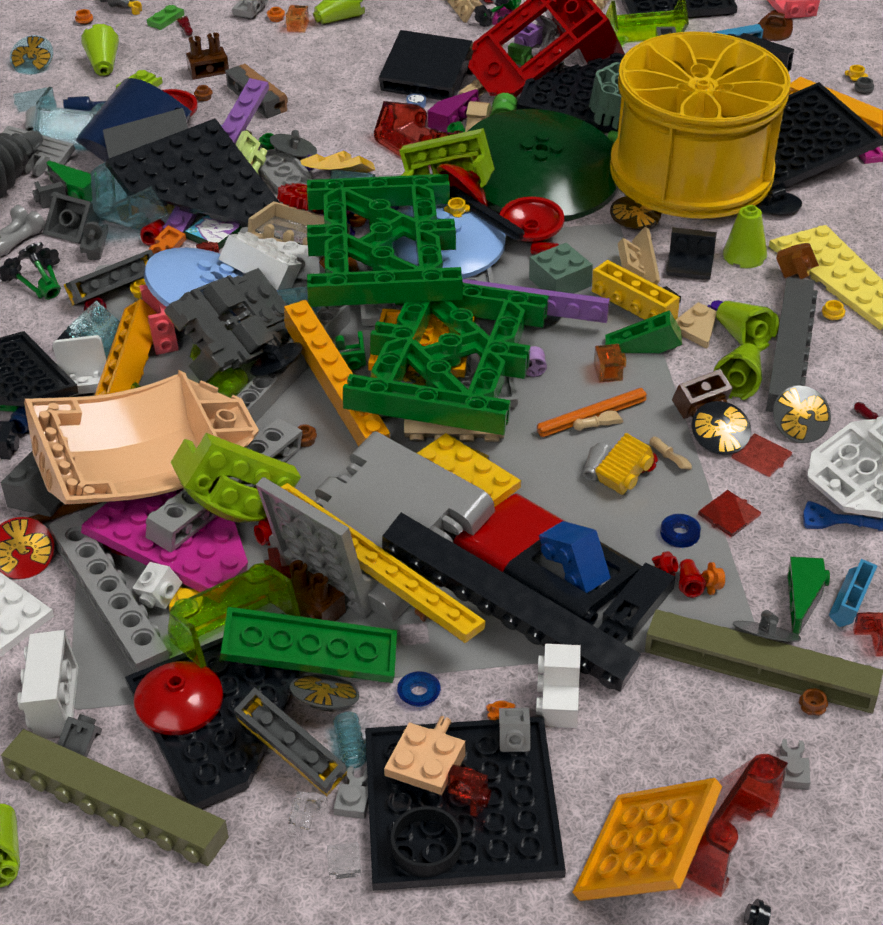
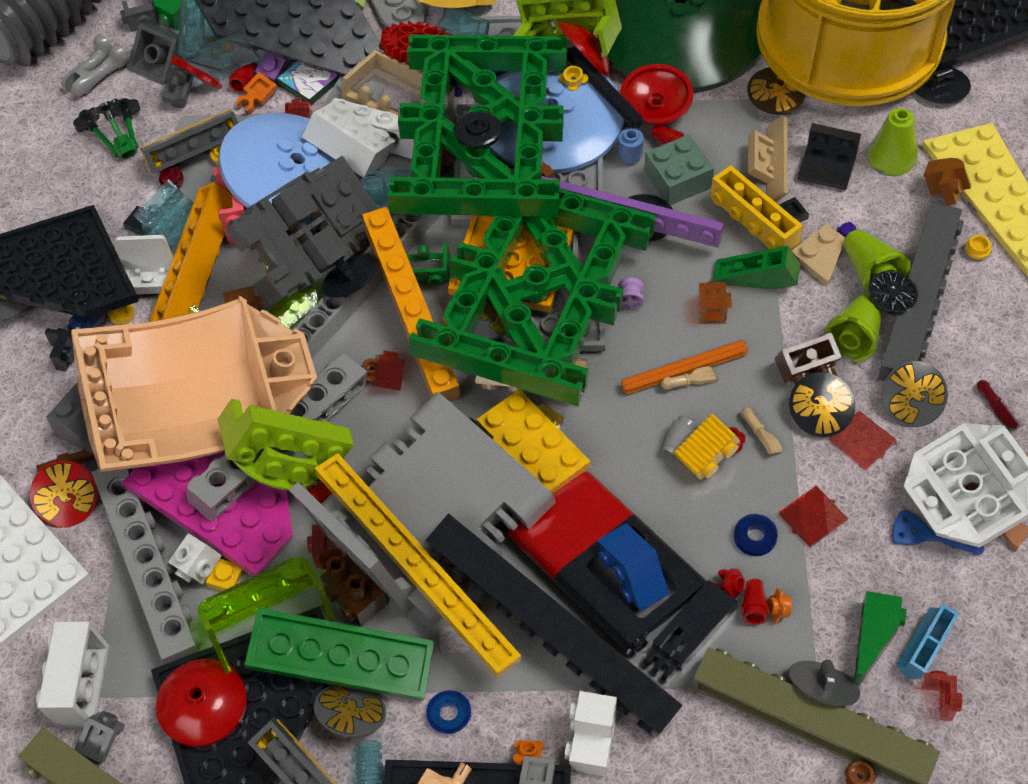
camera: 10 degrees right, 15 degrees up
(118, 232) = (206, 78): none -> red animal
(321, 432) = (389, 371): none -> clear red bracket
(381, 236) = (478, 129): none -> black wheel
(515, 257) = (630, 145): none -> medium blue brick
(767, 340) = (892, 292): none -> black wheel

